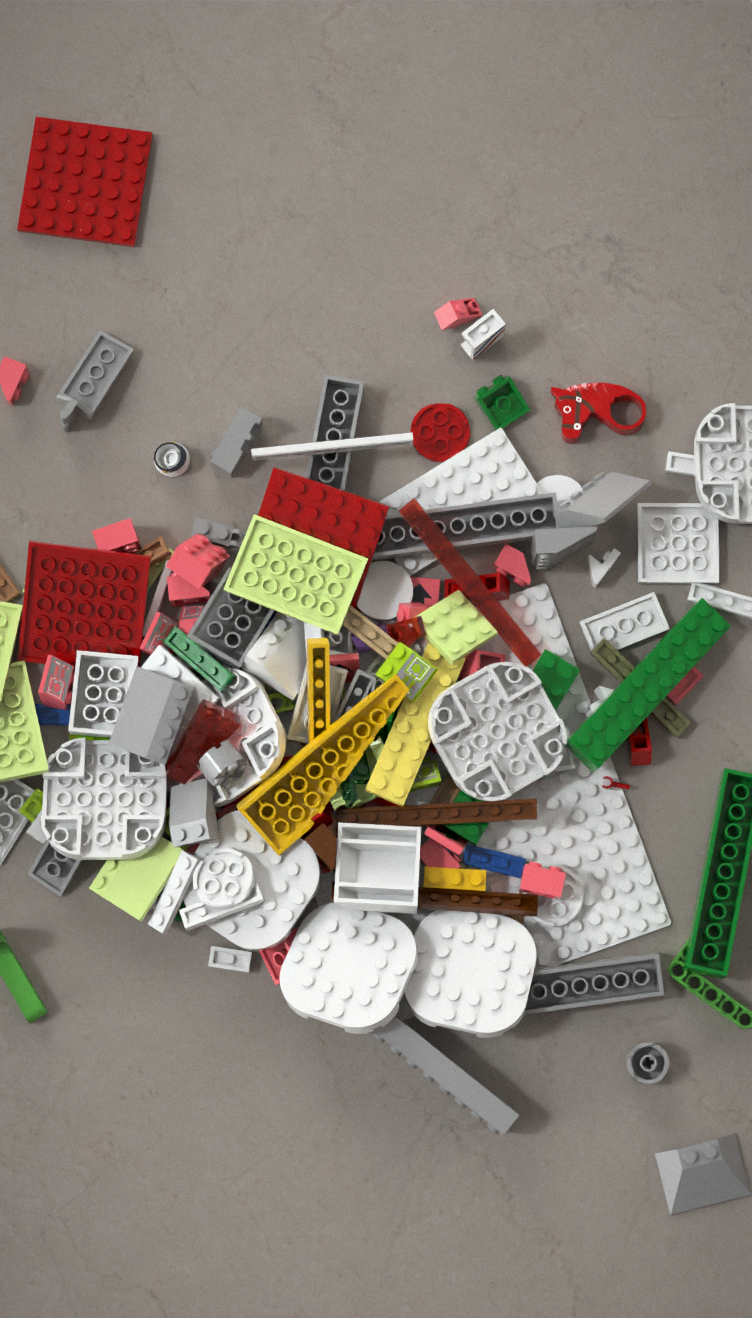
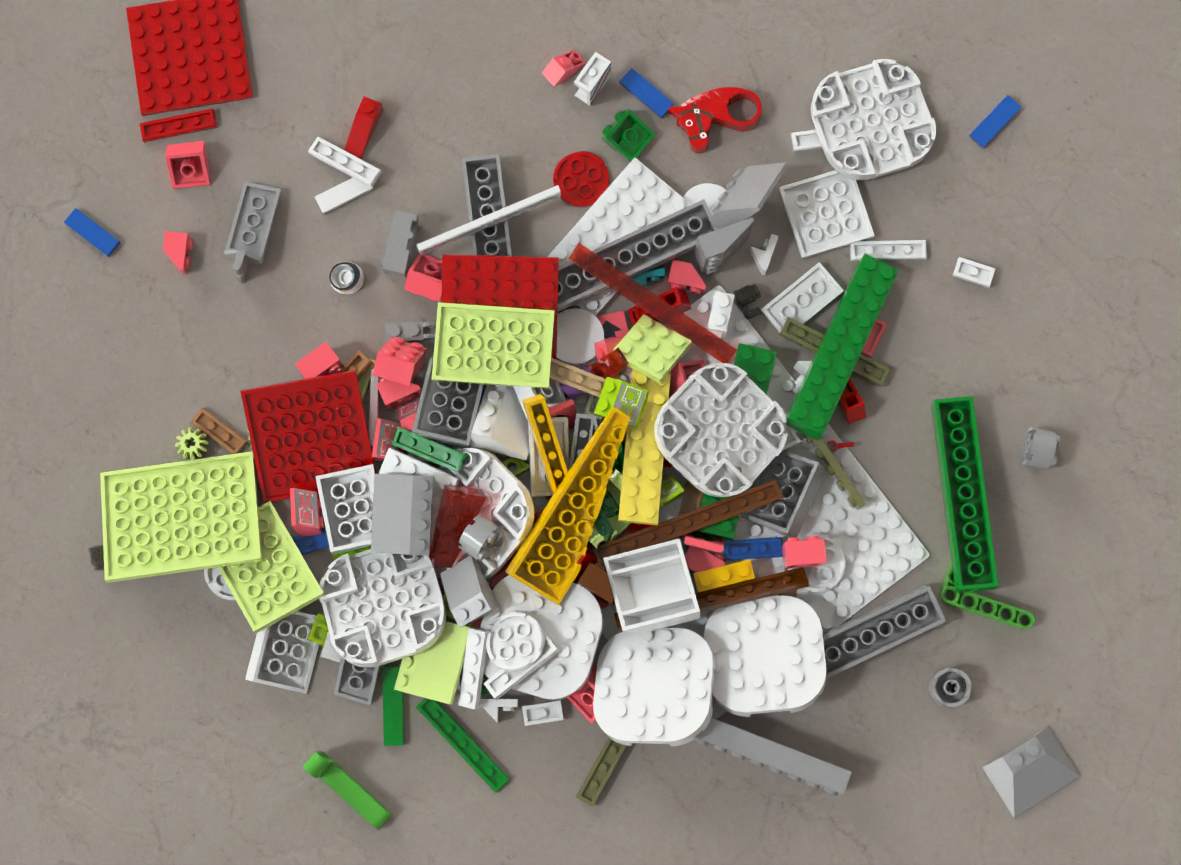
camera: 15 degrees left, 0 degrees up
(48, 295) = (188, 164): none -> coral slope
(51, 252) = (178, 125): none -> red tile
(81, 907) = (392, 708): none -> green tile
(141, 964) = (463, 744): none -> green tile
(182, 935) = (492, 706): none -> white slope
(196, 372) = (341, 194): none -> white tile
(206, 341) = (344, 162): none -> white tile
(236, 311) = (363, 126): none -> red slope
(250, 483) = (425, 277): none -> coral slope
(269, 1036) = (600, 772): none -> olive plate
(481, 553) = (653, 275): none -> teal slope
(534, 365) = (646, 93): none -> blue tile
(535, 613) = (720, 313): none -> white panel
(559, 810) = (798, 483): none -> light grey slope
(569, 603) = (745, 296): none -> clear smoke piece
(601, 806) = (835, 469): none -> olive plate

